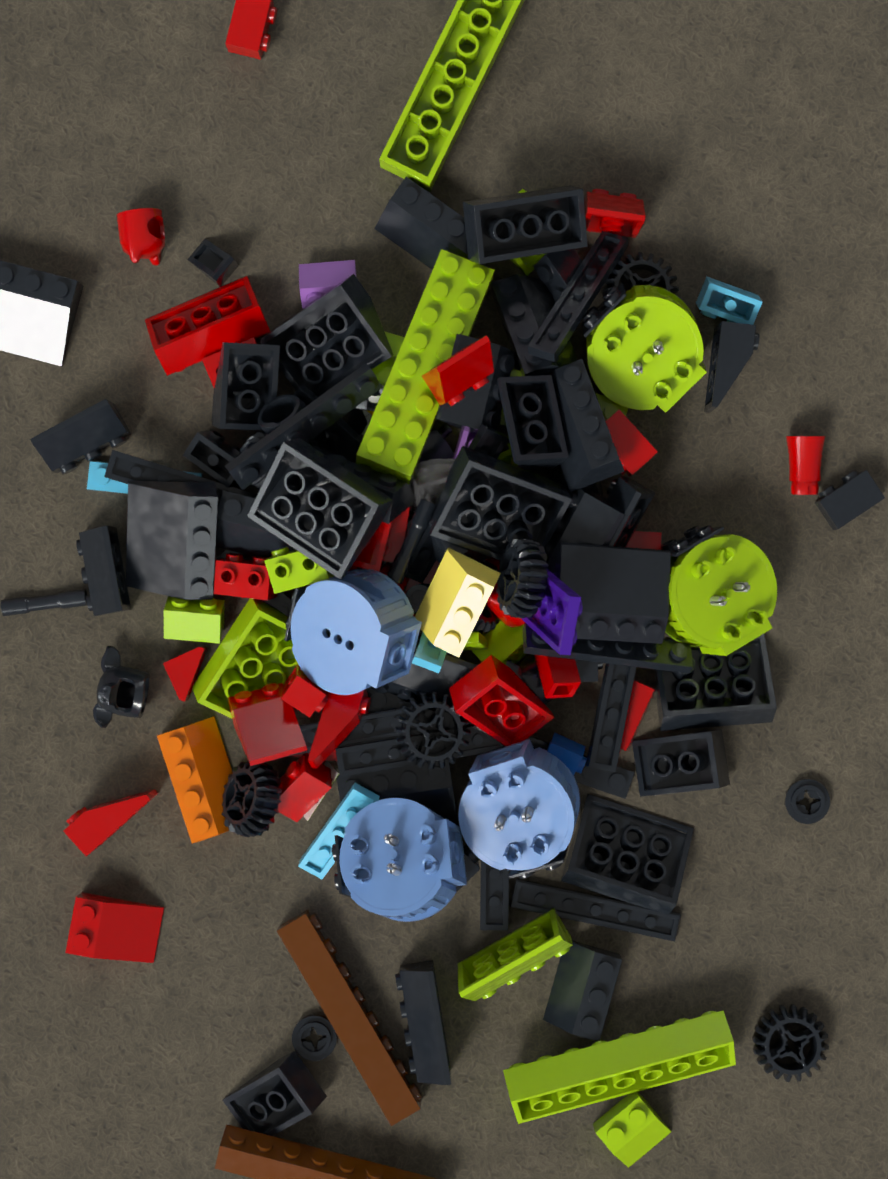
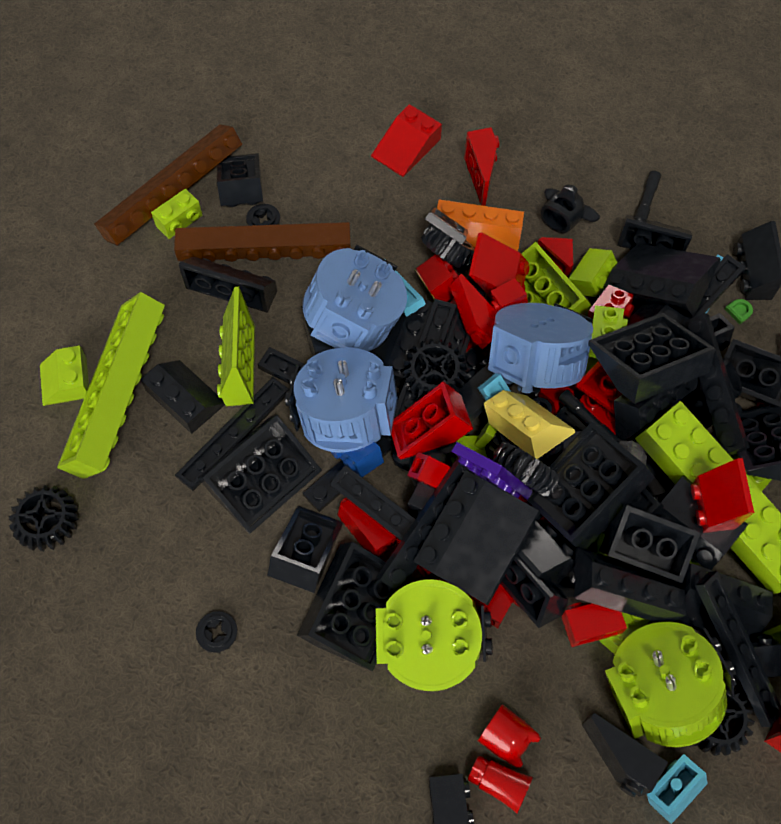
camera: 115 degrees right, 25 degrees down
(151, 434) = (739, 310): none -> bright green tile
(233, 813) = (447, 225): none -> tile
(366, 1138) = (177, 213): none -> lime brick
(762, 476) = (508, 736): none -> red piece

